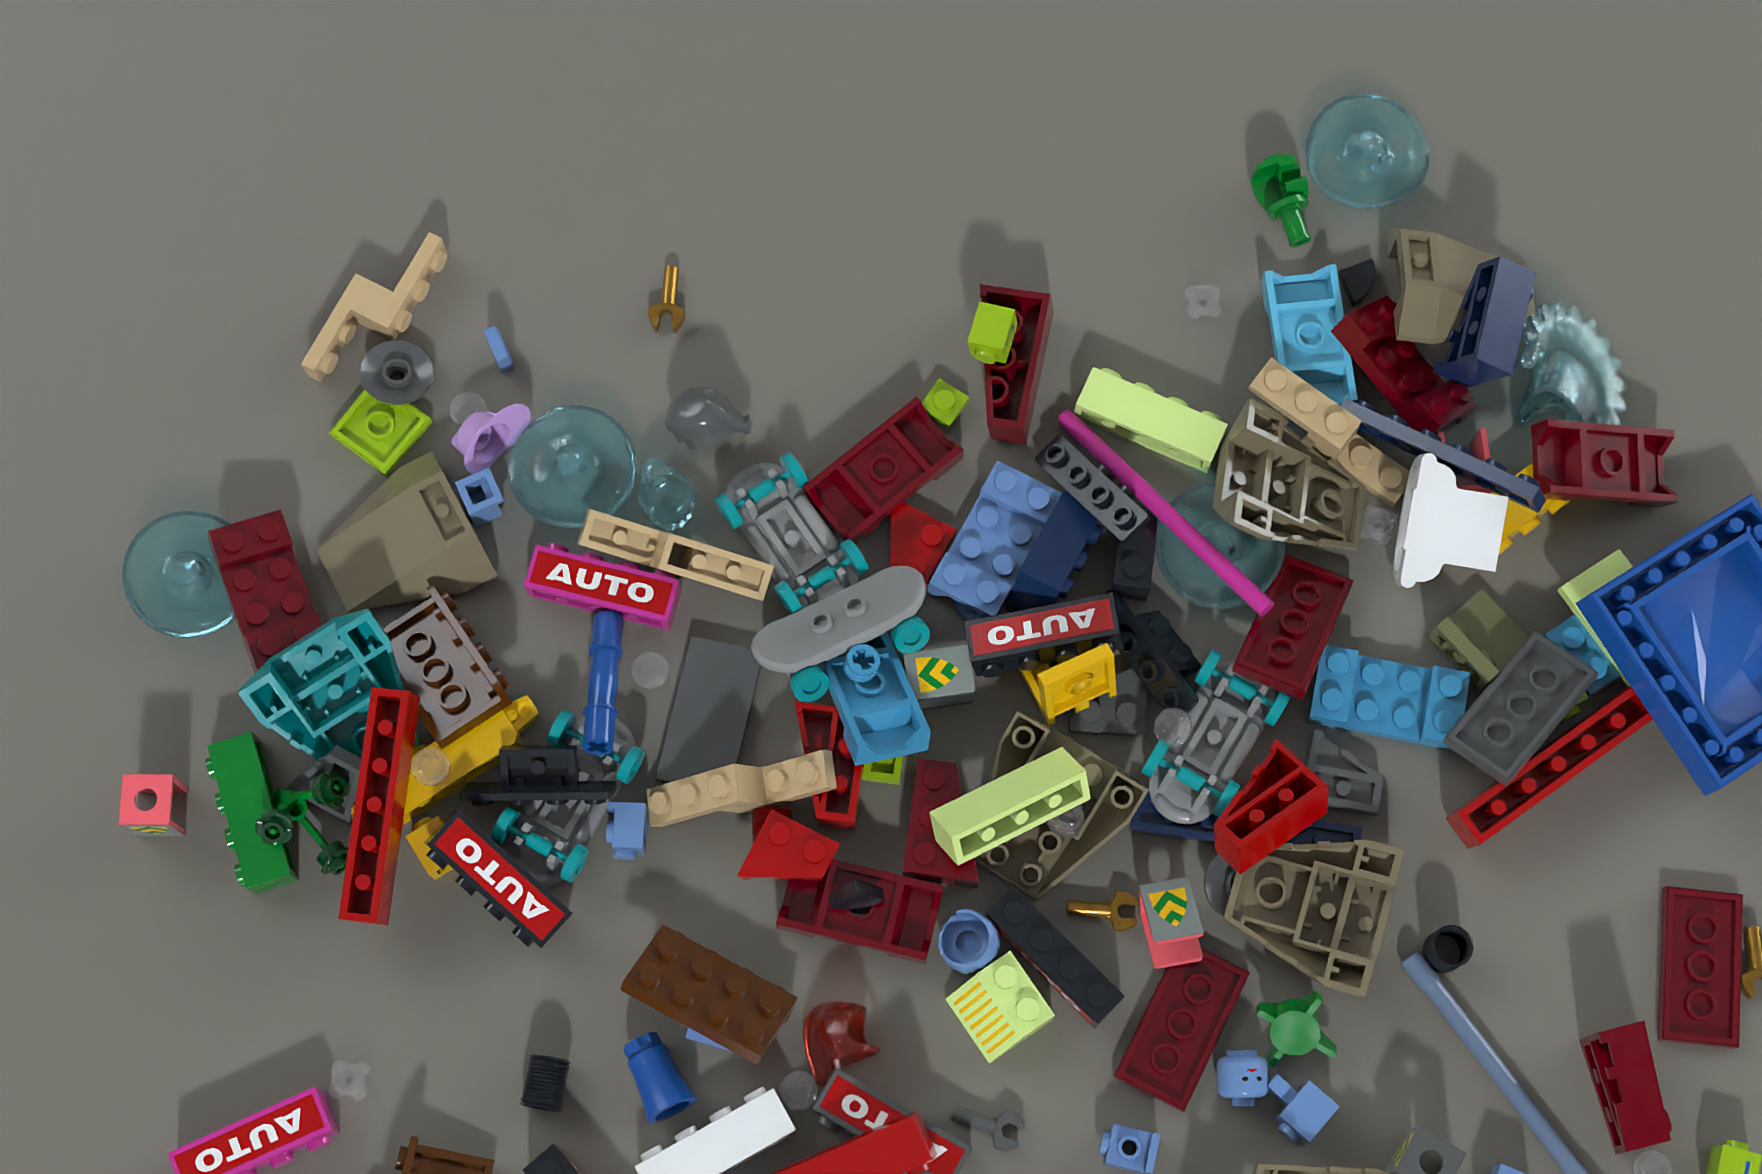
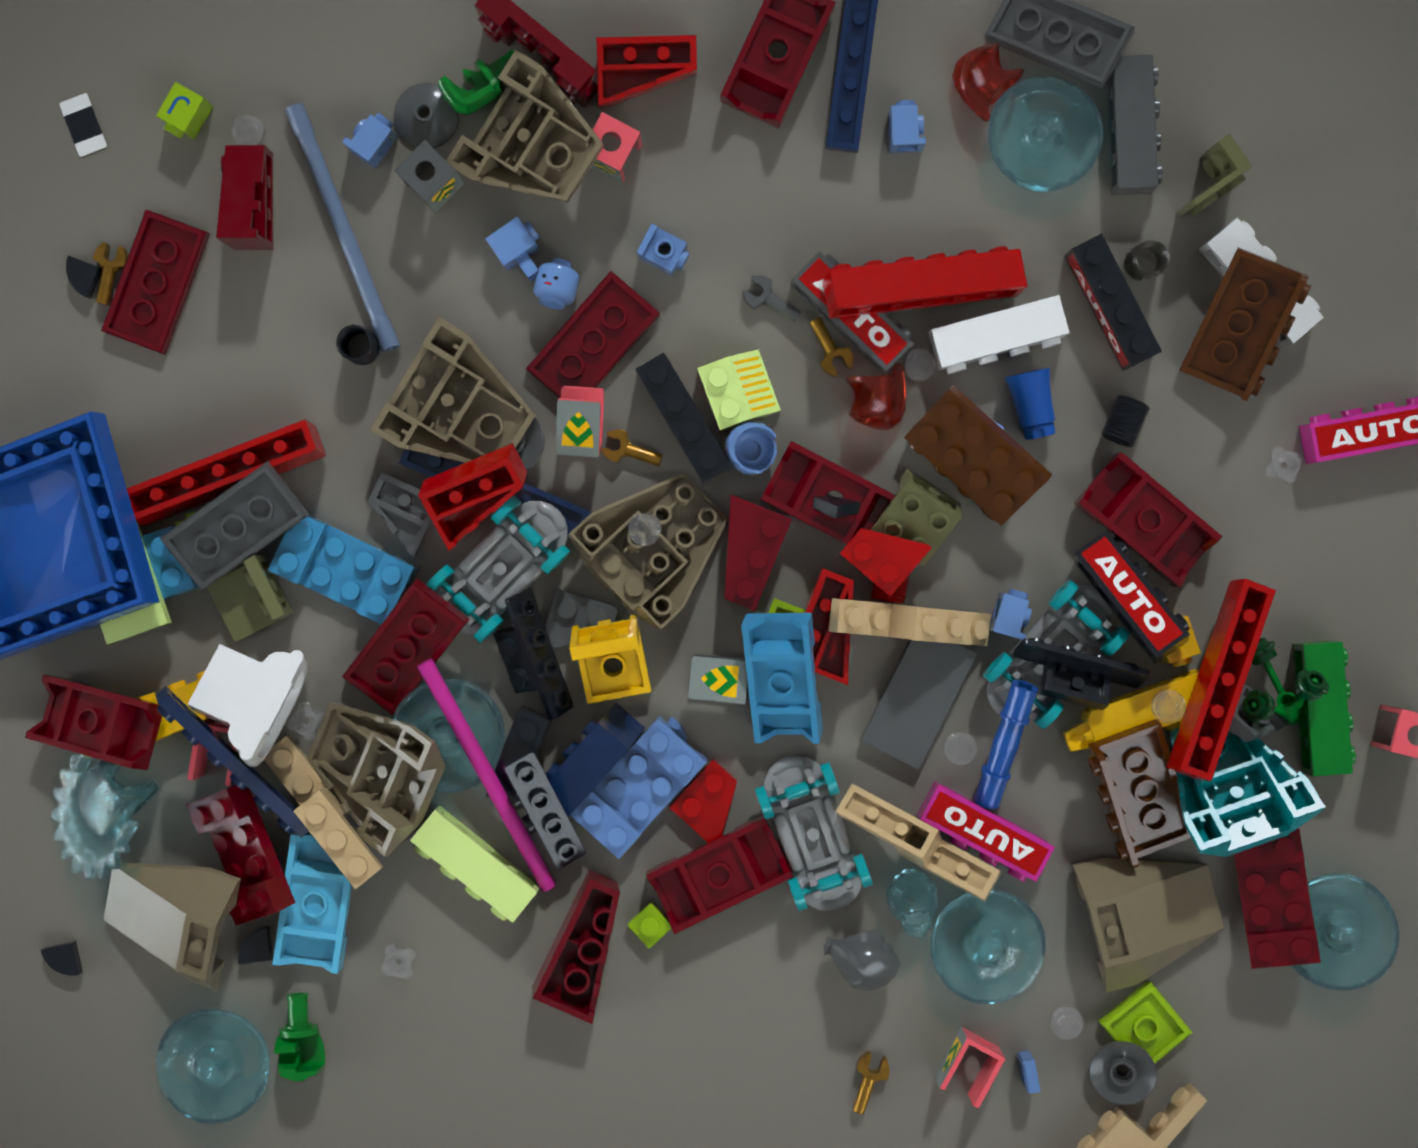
camera: 165 degrees left, 15 degrees up
(481, 496) = (1074, 937): medium blue brick -> none
(489, 435) = (1055, 994): lavender piece -> none
(496, 975) = (1147, 518): none -> dark red piece
(569, 368) = (987, 1073): none -> coral piece
(758, 916) = (919, 514): none -> olive bracket
(840, 622) = (792, 741): light grey piece -> none
(855, 671) = (791, 695): dark azure bush -> none
(906, 1085) = (830, 348): none -> pearl gold bar
(992, 333) = (594, 972): lime brick -> none
(1010, 805) = (689, 547): yellowish green brick -> none
(1042, 635) = (620, 690): brick -> none
(1173, 726) = (532, 583): clear plate -> none
(1295, 1027) = (502, 312): green piece -> none
(1491, 326) = (152, 868): dark blue wedge -> none
(1558, 221) = (63, 958): none -> black tile

